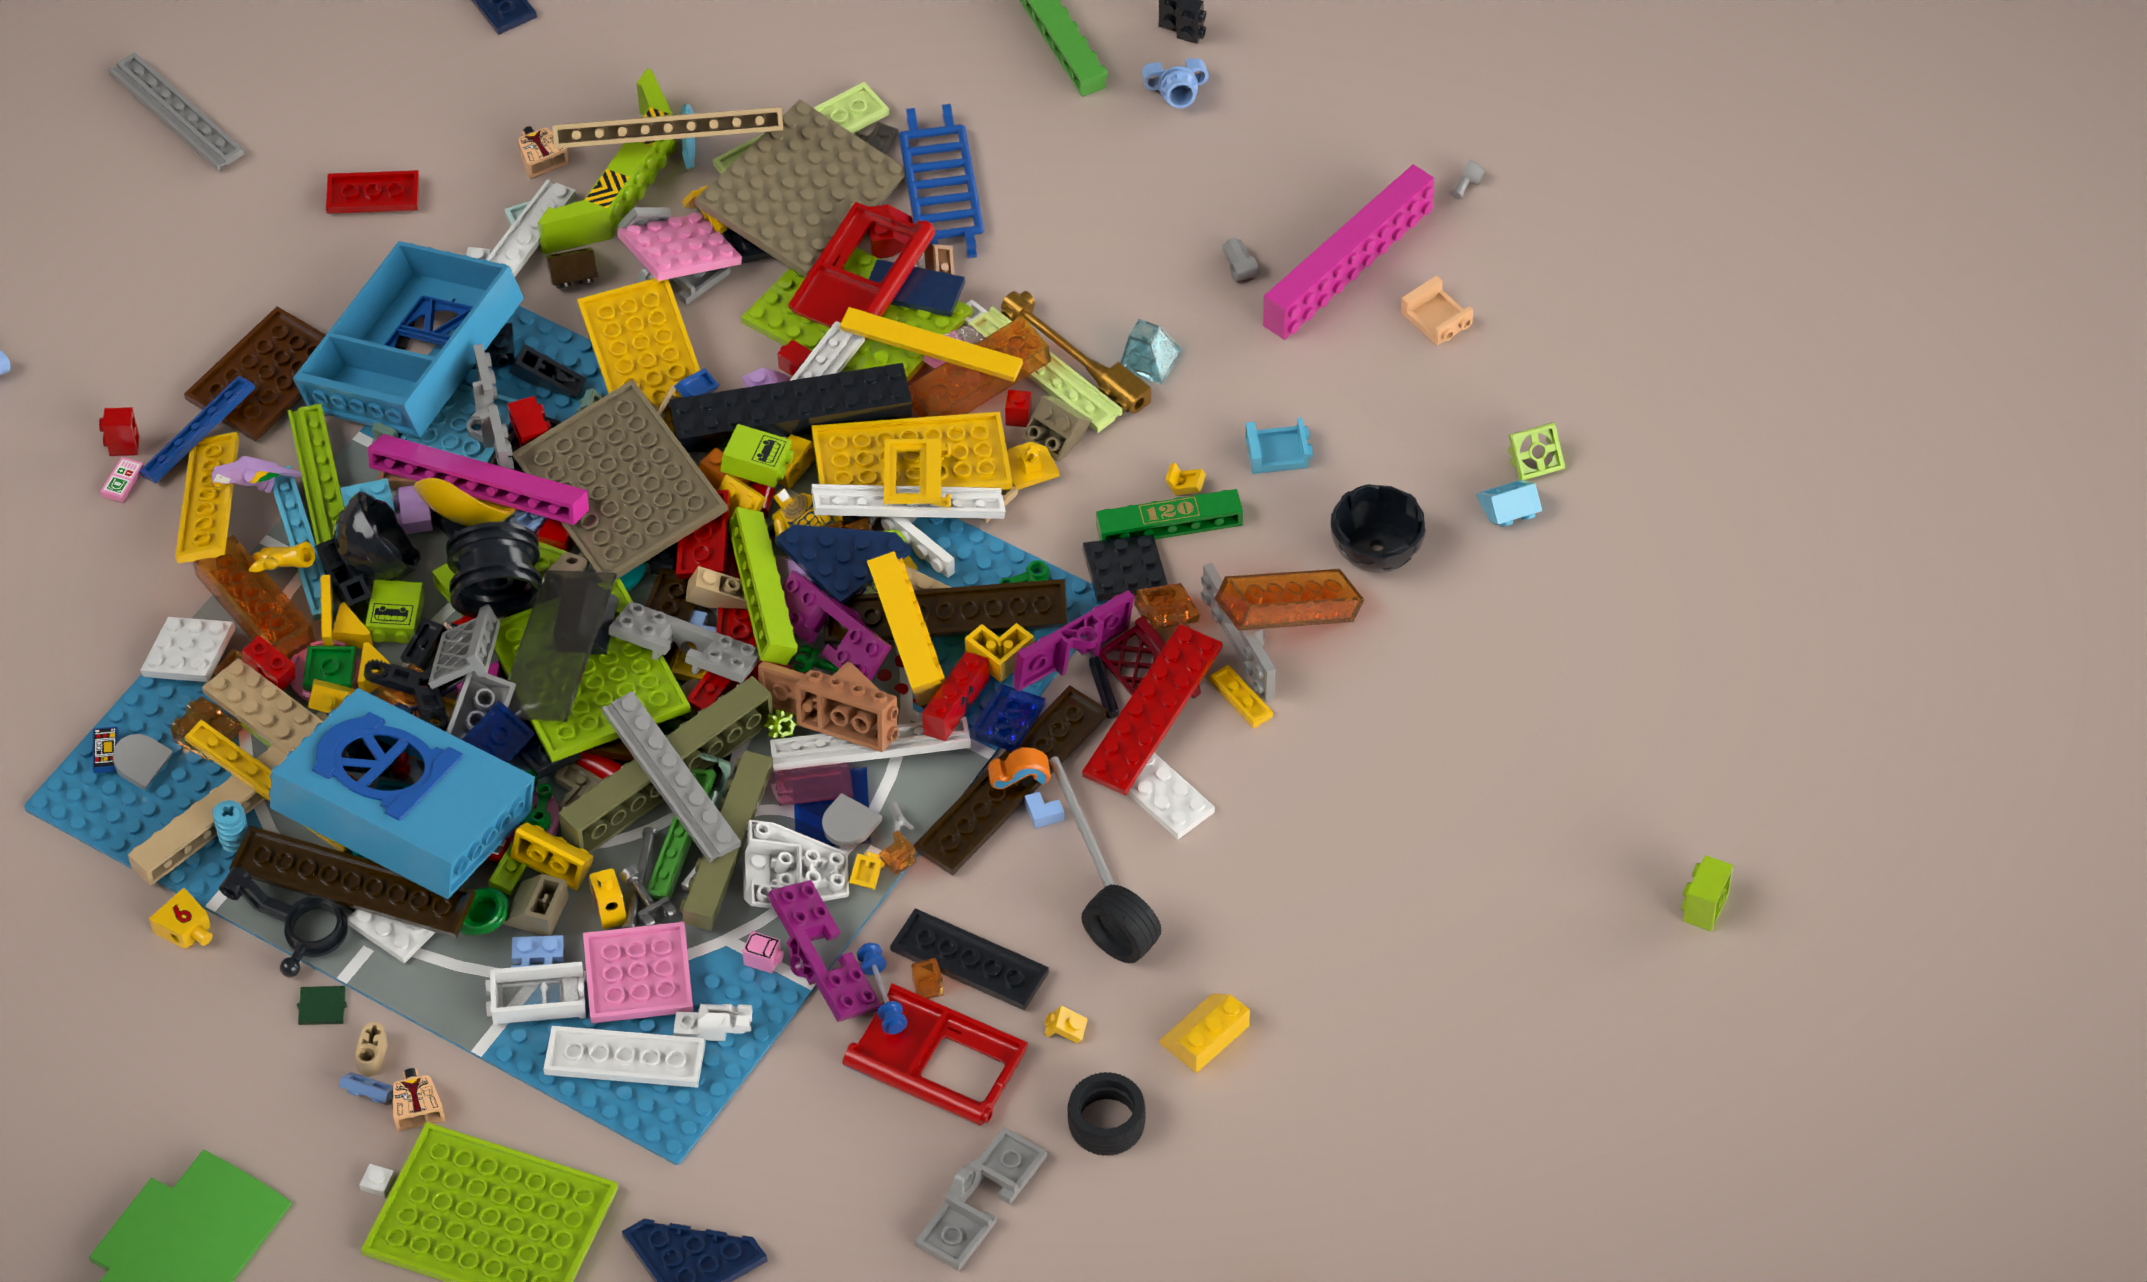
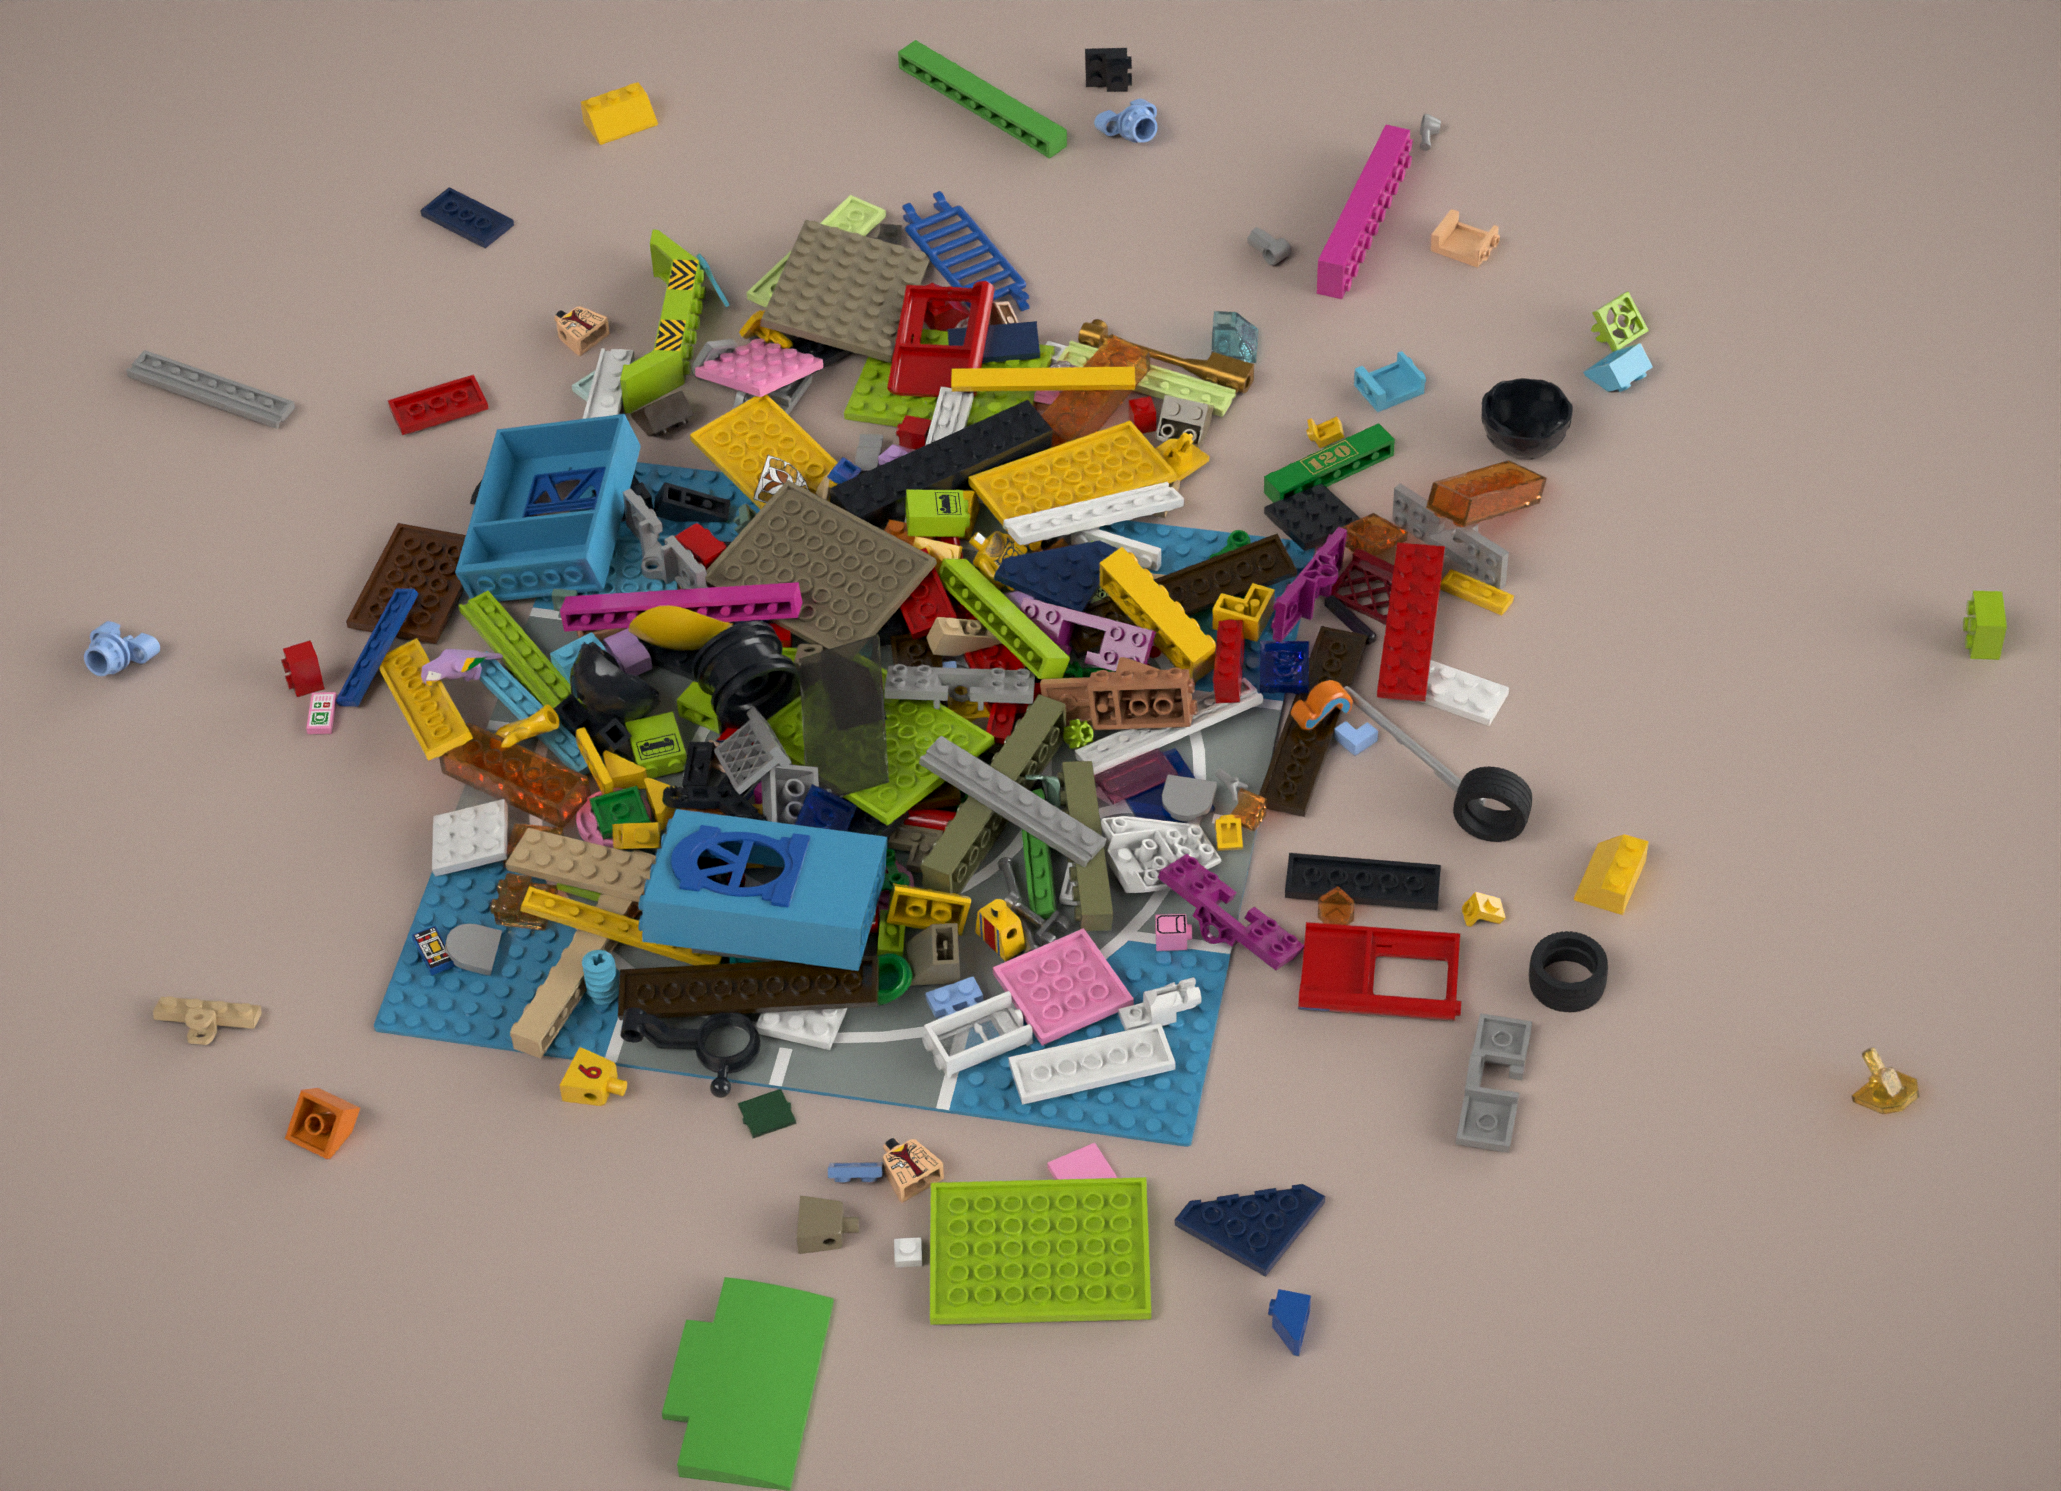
camera: 20 degrees left, 5 degrees down
(269, 662) = (562, 820): red brick -> none
(313, 1129) = (822, 1225): none -> dark tan torso
(374, 1033) = (840, 1140): tan beam -> none
(571, 1151) = (1081, 1164): none -> bright pink tile
(630, 367) = (773, 477): none -> shield
(667, 127) = (704, 267): tan brick -> none
(743, 364) = (868, 451): none -> light grey piece
(891, 1011) = (1319, 947): blue axle -> none
(930, 471) = (1100, 477): yellow piece -> none

